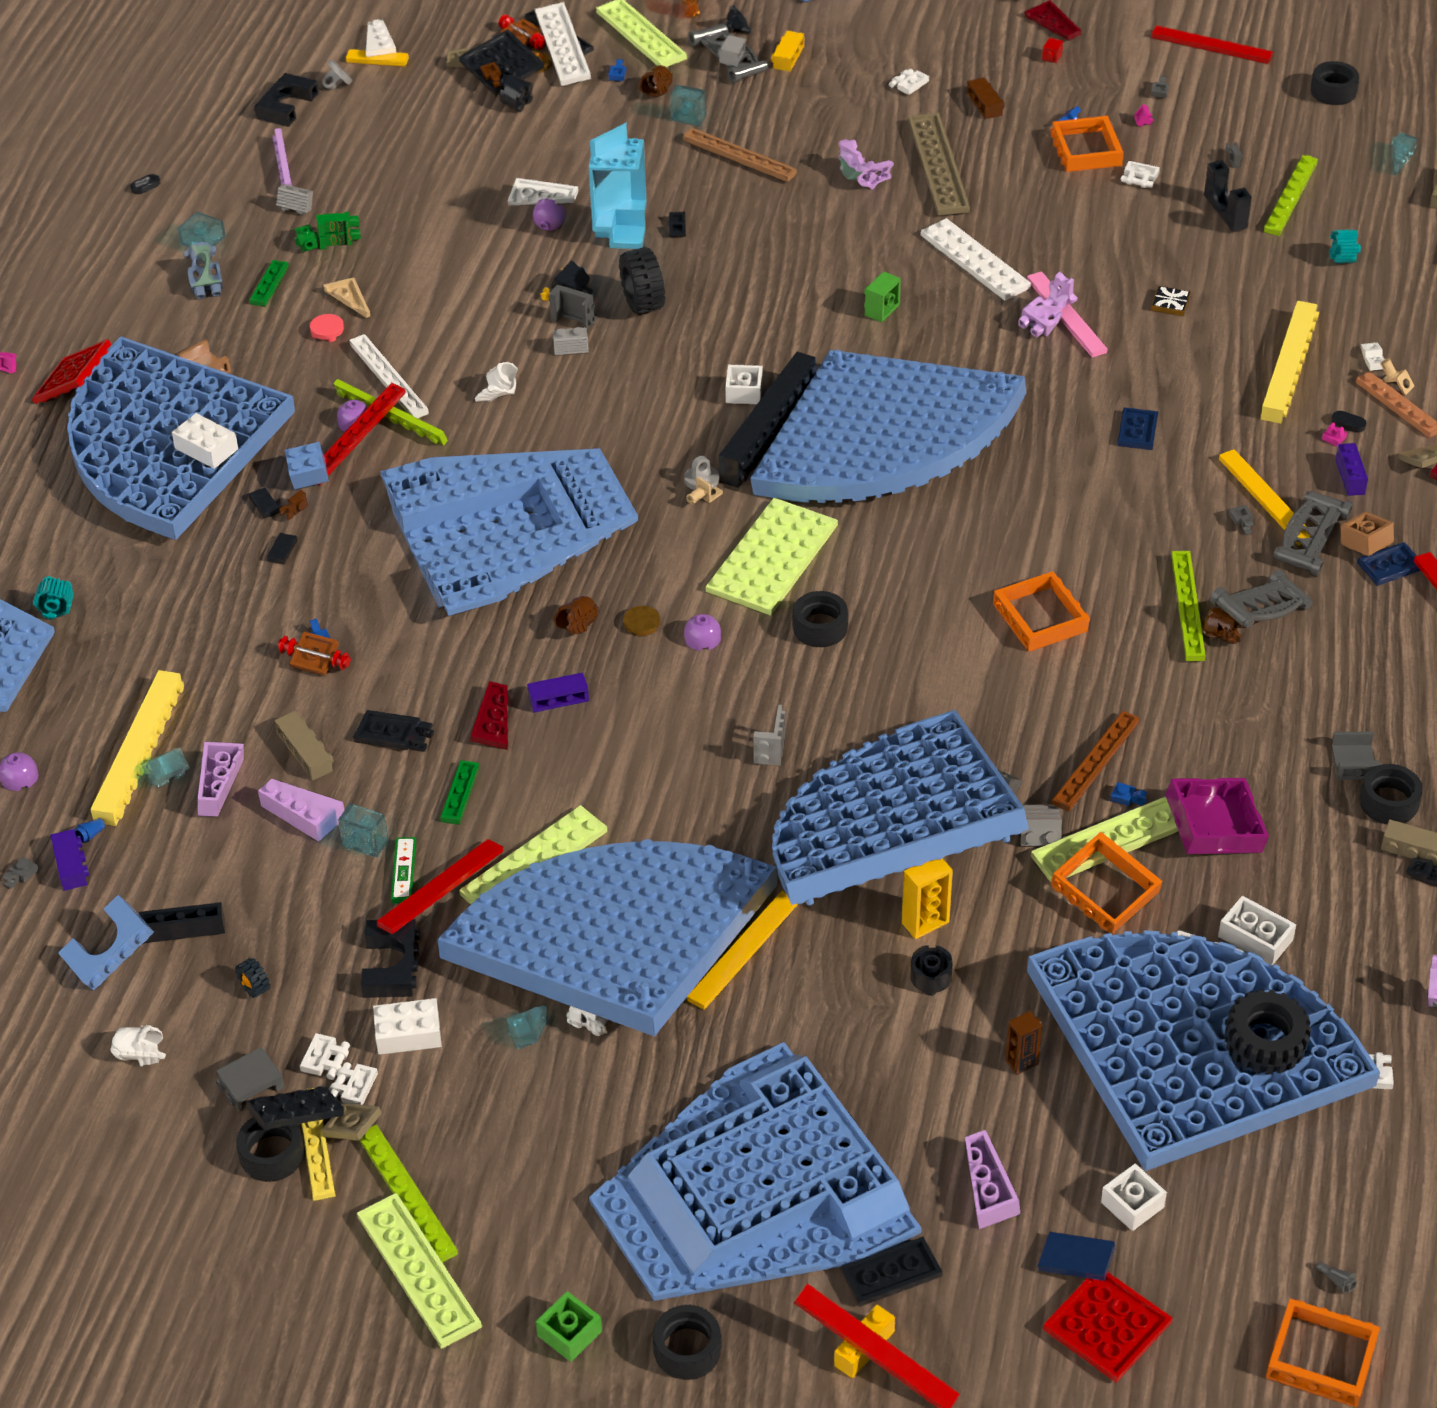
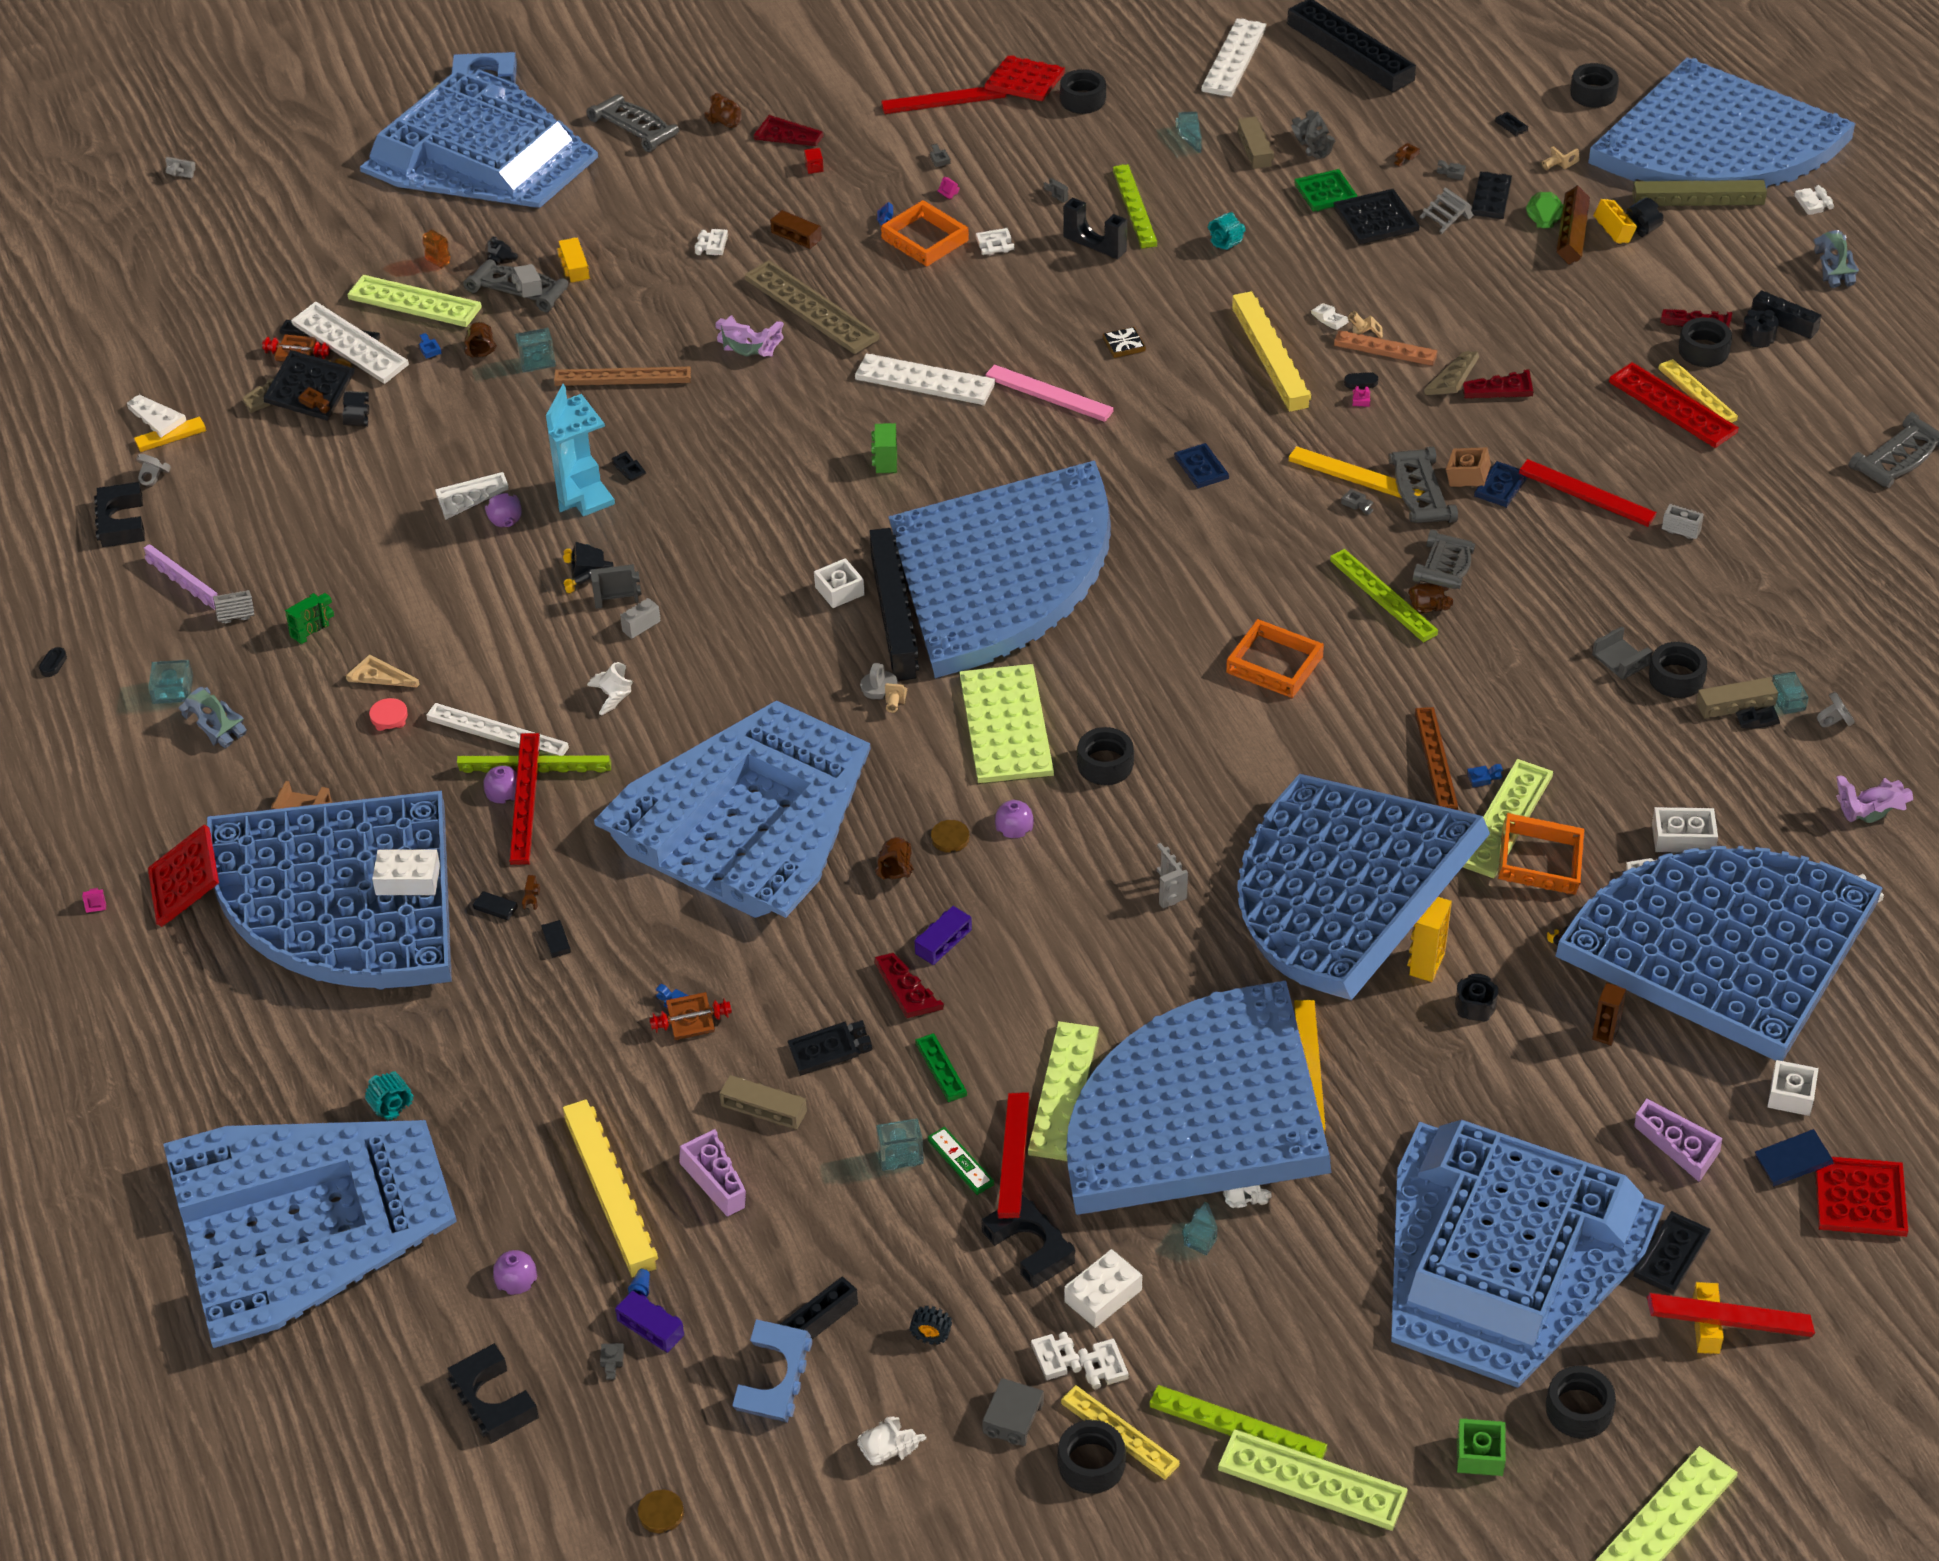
camera: 35 degrees left, 0 degrees up
(165, 766) = (657, 1189): clear light blue brick -> none
(268, 283) = (284, 699): green tile -> none
(295, 1108) = (1088, 1409): black plate -> none
(301, 808) = (818, 1157): lavender wedge -> none
(306, 238) = (283, 638): green brick -> none
(306, 465) = (510, 849): medium blue brick -> none
(354, 1123) = (1139, 1394): dark tan plate -> none
(642, 280) = (665, 530): black tyre -> none
(1058, 299) = (1038, 382): lavender hips -> none
(1216, 815) = (1571, 755): magenta tile -> none
(1261, 1053) = (1786, 918): black tyre -> none
(1295, 53) = (1025, 78): none -> red plate
(1351, 469) = (1403, 419): dark purple brick -> none

